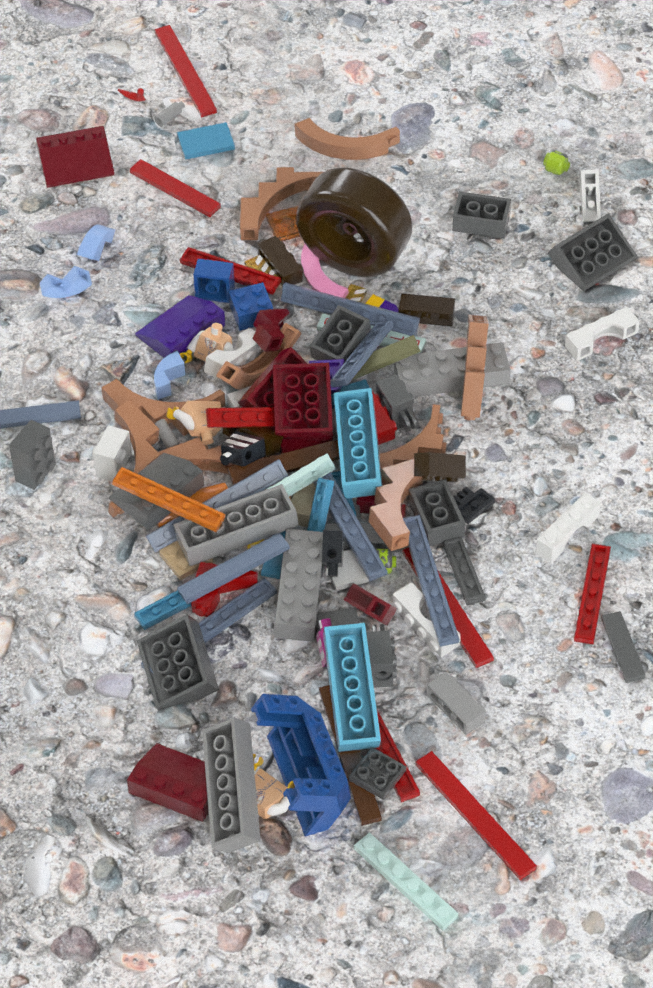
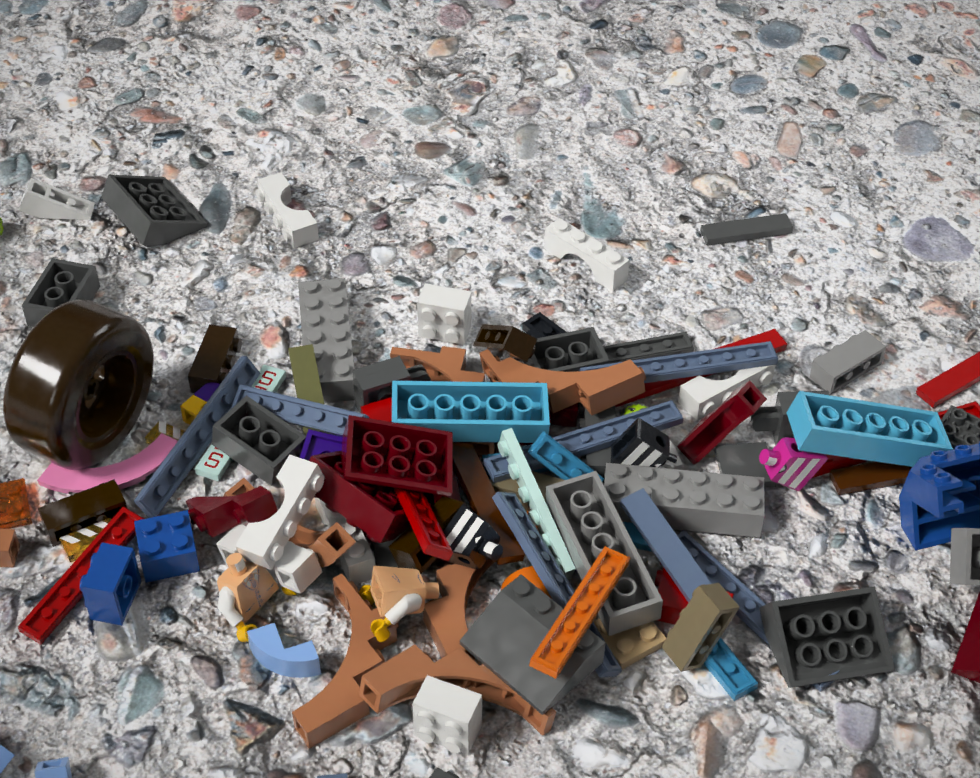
camera: 90 degrees left, 5 degrees down
(166, 434) = (423, 643): light grey cylinder -> none
(172, 577) = (700, 626): none -> dark tan brick
(180, 324) = (184, 637): dark purple slope -> none
(267, 344) = (265, 540): none -> white arch
(474, 366) = (303, 291): nougat arch -> none
(477, 434) = (444, 314): none -> white brick
(592, 594) = (673, 247): red tile -> none

